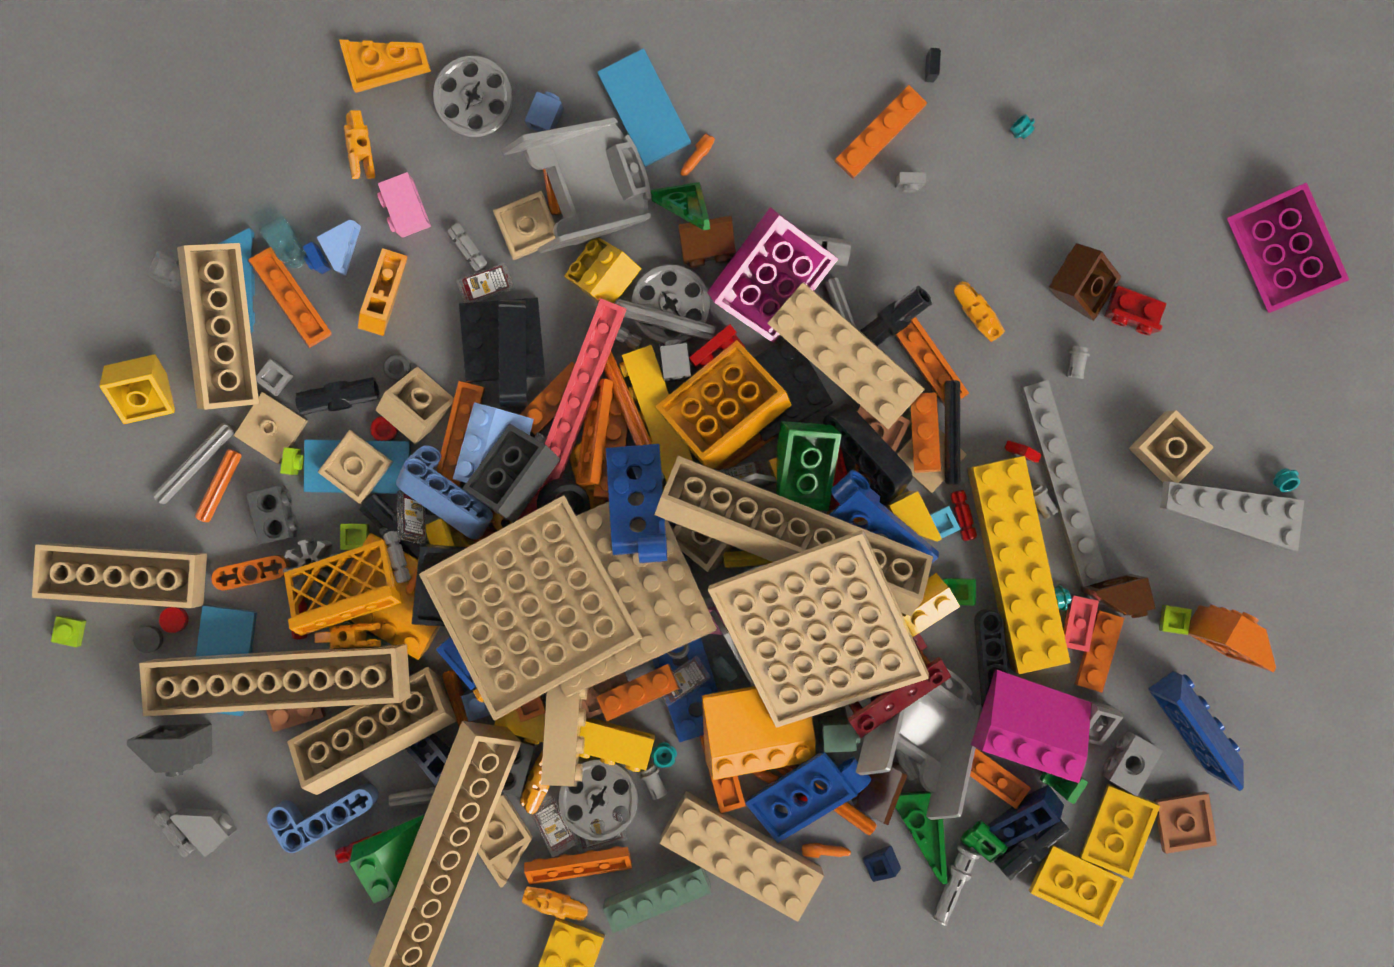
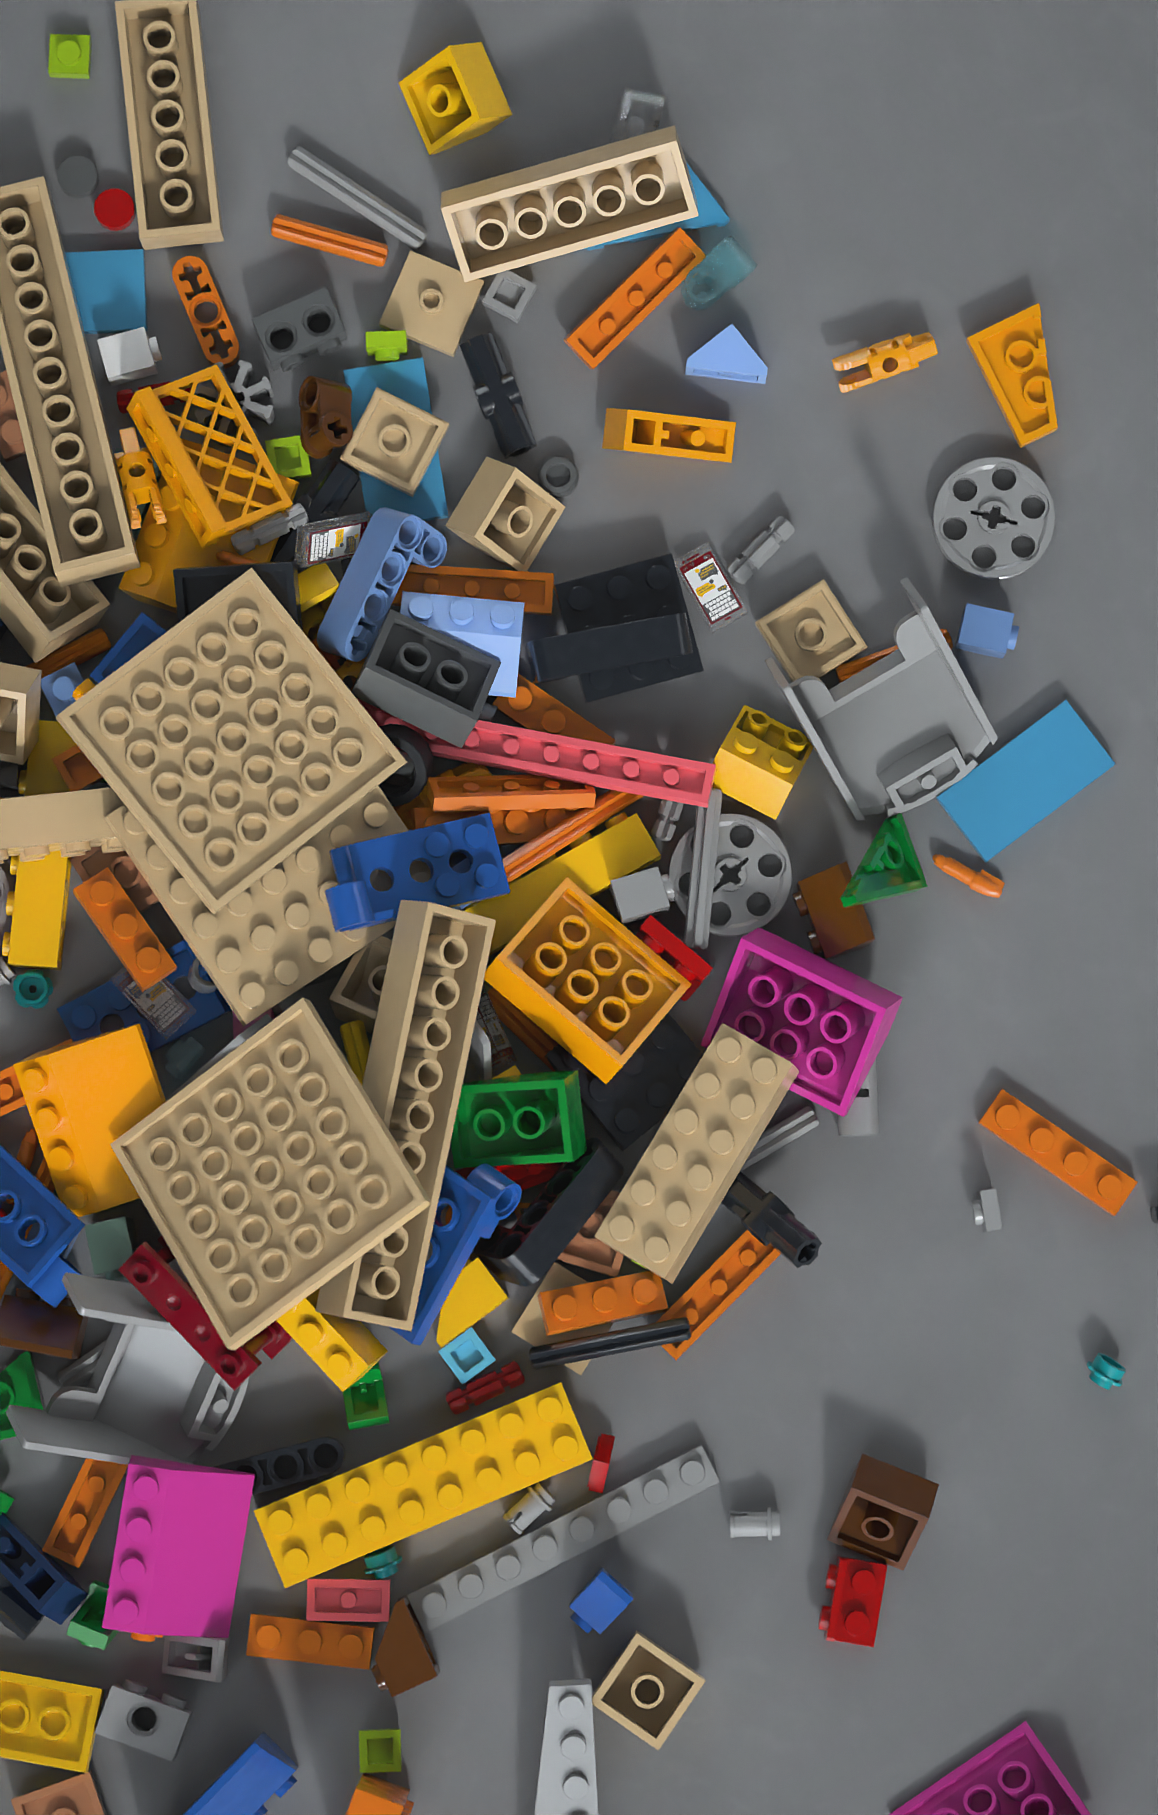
camera: 80 degrees right, 5 degrees down
(269, 626) = (129, 356): none -> white brick
(315, 258) = (700, 326): blue plate -> none
(330, 508) = (325, 410): none -> reddish brown piece
(382, 429) = (459, 472): red tile -> none
(403, 205) = (806, 443): bright pink brick -> none
(978, 311) = (807, 1352): light orange hinge -> none
(1110, 466) = (599, 1602): none -> blue slope

